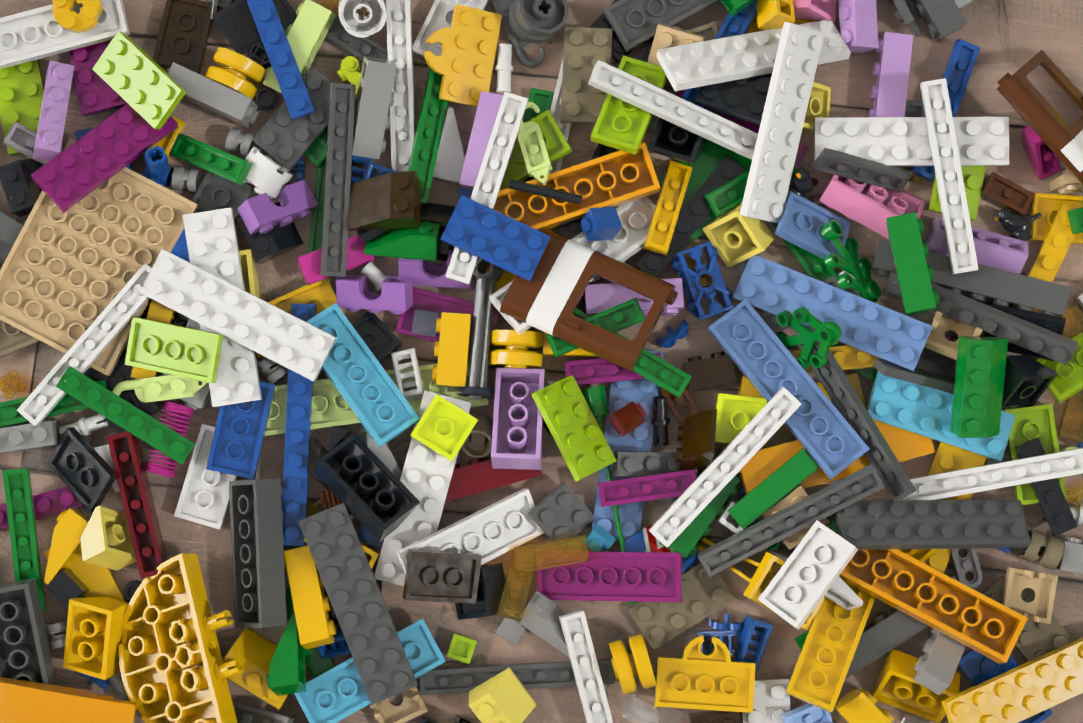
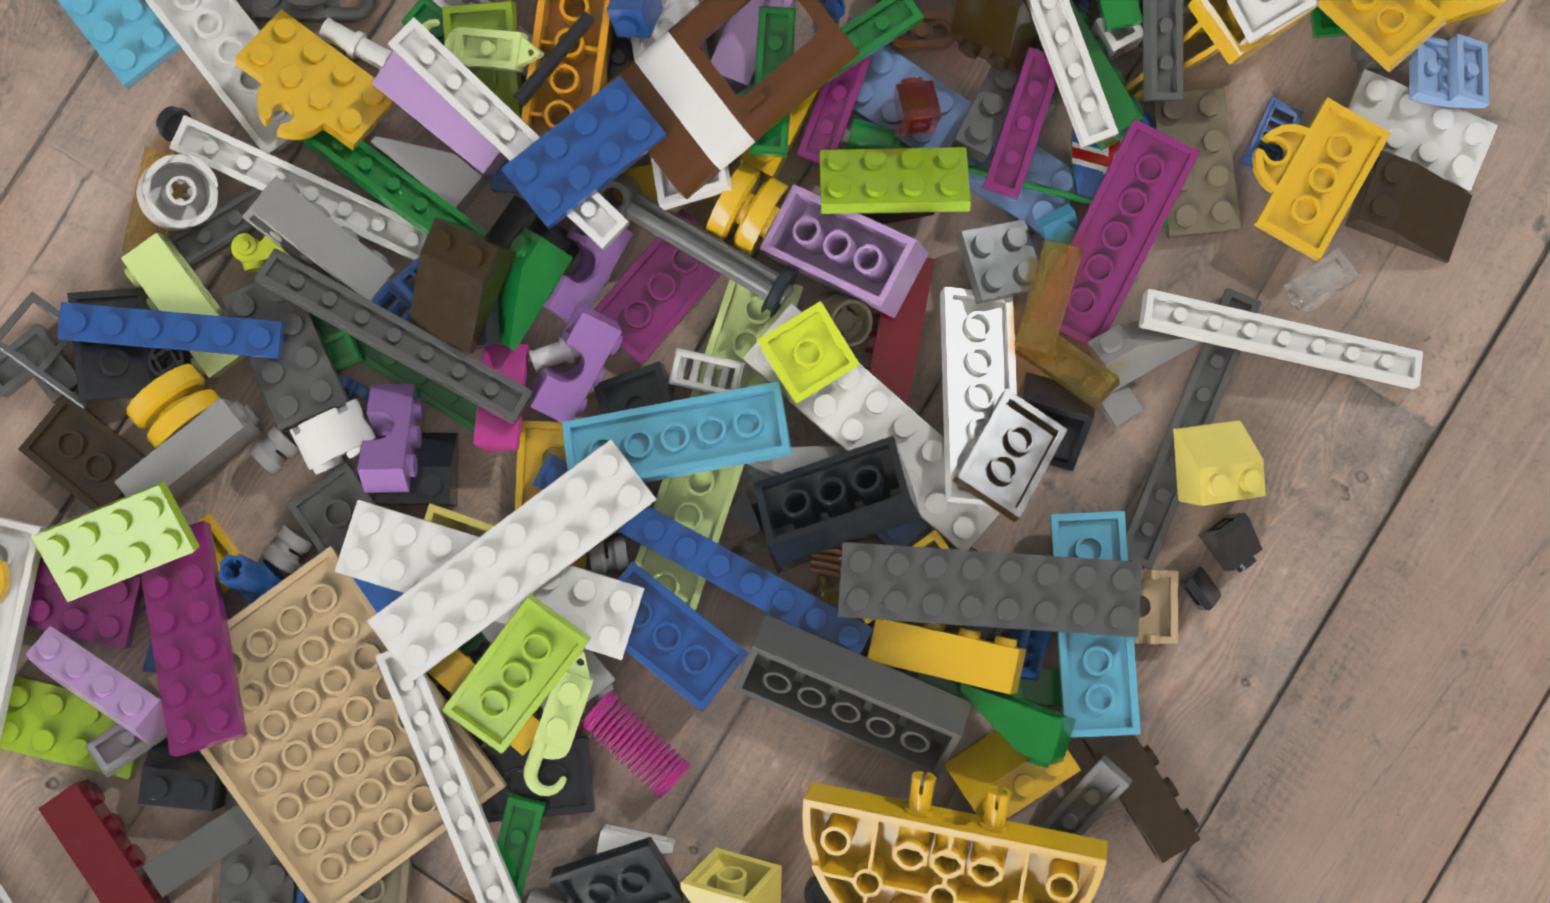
camera: 60 degrees left, 0 degrees up
(87, 425) = (560, 847): white pin -> none
(125, 415) = (572, 786): green plate -> none
(137, 502) = (702, 829): dark red brick -> none
(204, 491) = (730, 730): white plate -> none
(211, 159) = (277, 498): green tile -> none
(266, 98) = (233, 385): black plate -> none
(424, 323) = (650, 316): clear light blue tile -> none
(452, 349) = (705, 295): yellow brick -> none
(461, 648) = (1114, 483): lime plate -> none
(631, 664) = (1249, 261): yellow wheel -> none
(660, 420) = (938, 68): black pin -> none
(726, 625) = (1254, 116): blue piece -> none
(745, 639) = (1277, 91): blue slope -> none

